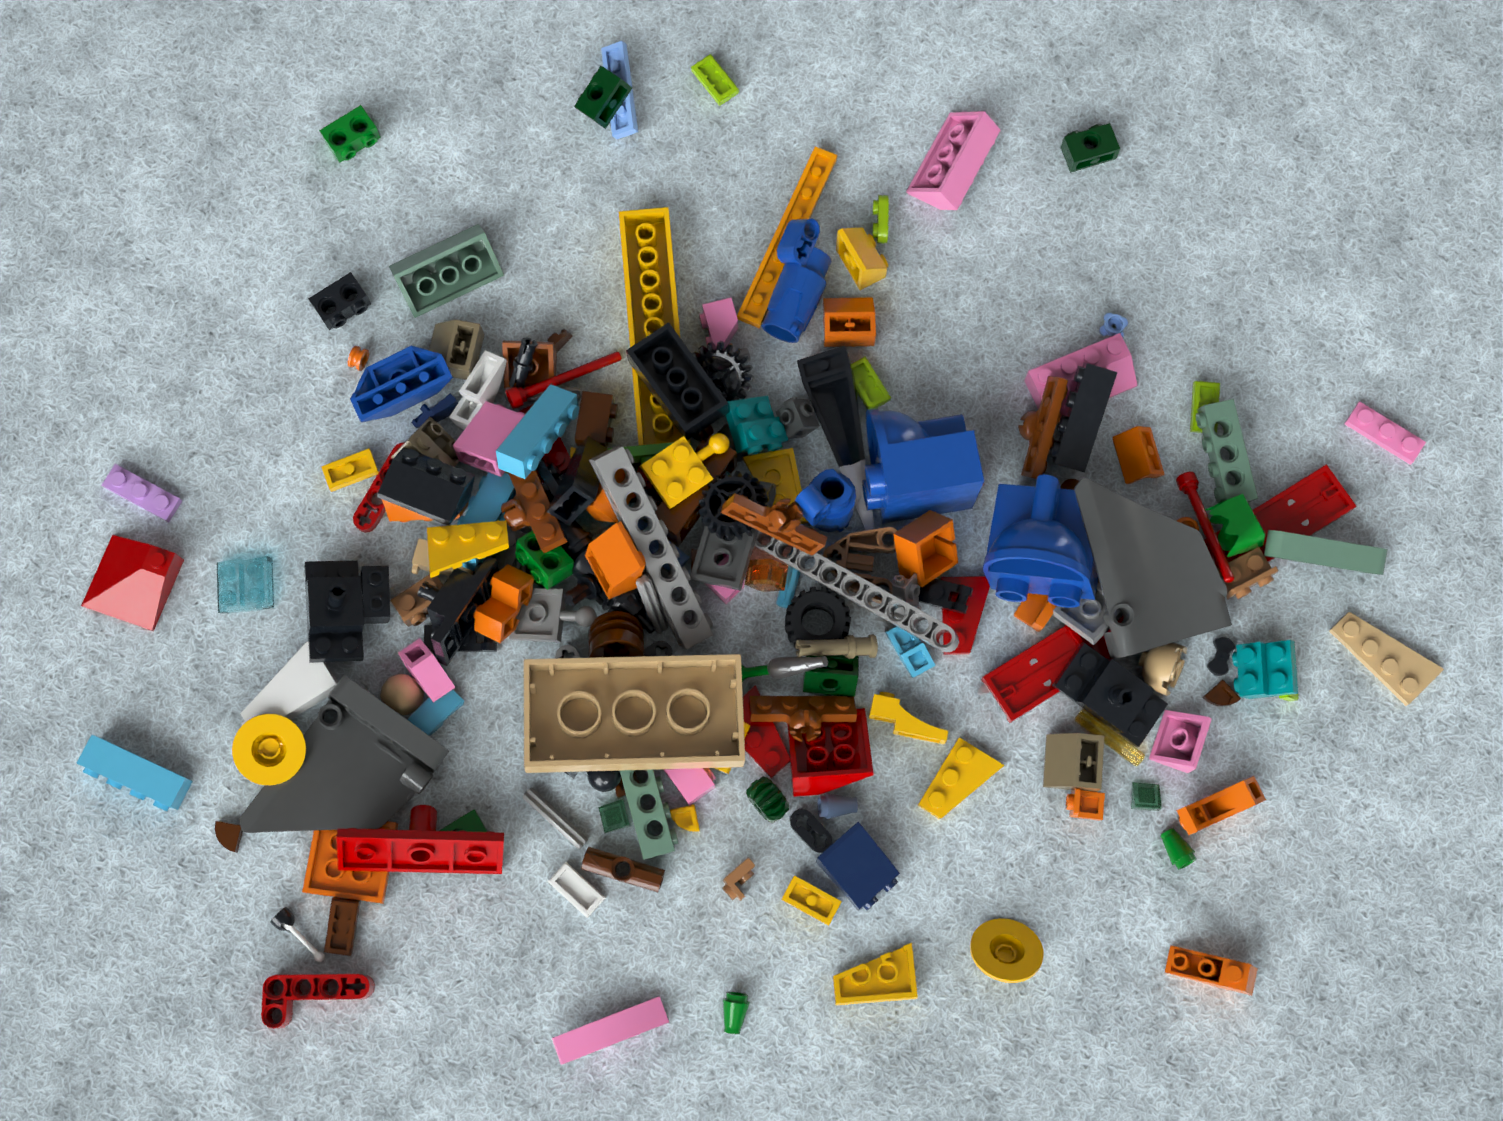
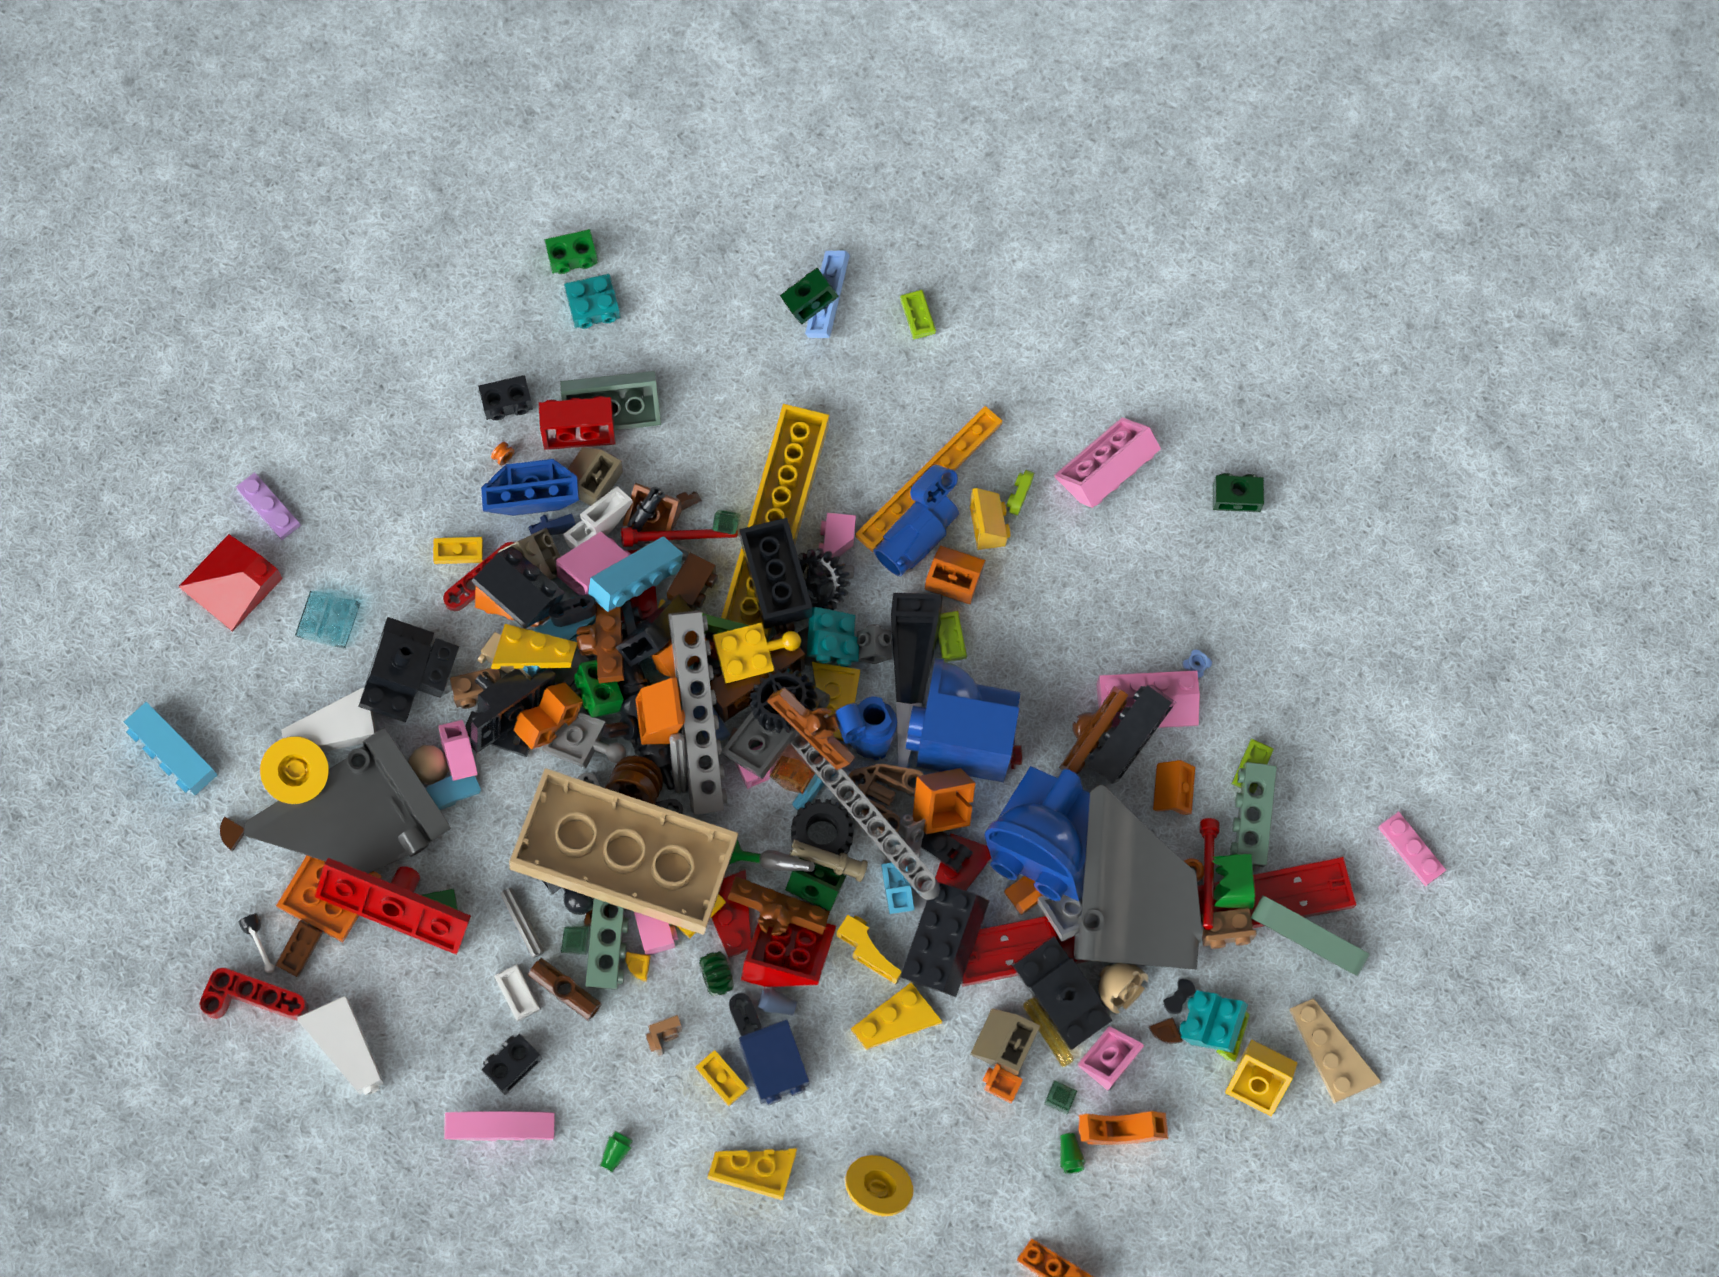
camera: 15 degrees right, 5 degrees down
(390, 176) = (592, 301): none -> teal plate
(421, 301) = (576, 423): none -> red slope
(422, 1004) = (342, 1040): none -> white slope
(489, 490) = (573, 610): none -> black beam
(605, 348) = (726, 521): none -> clear green slope
(605, 966) = (516, 1067): none -> black brick
(979, 685) = (945, 940): none -> black brick
(1331, 706) = (1261, 1077): none -> yellow slope

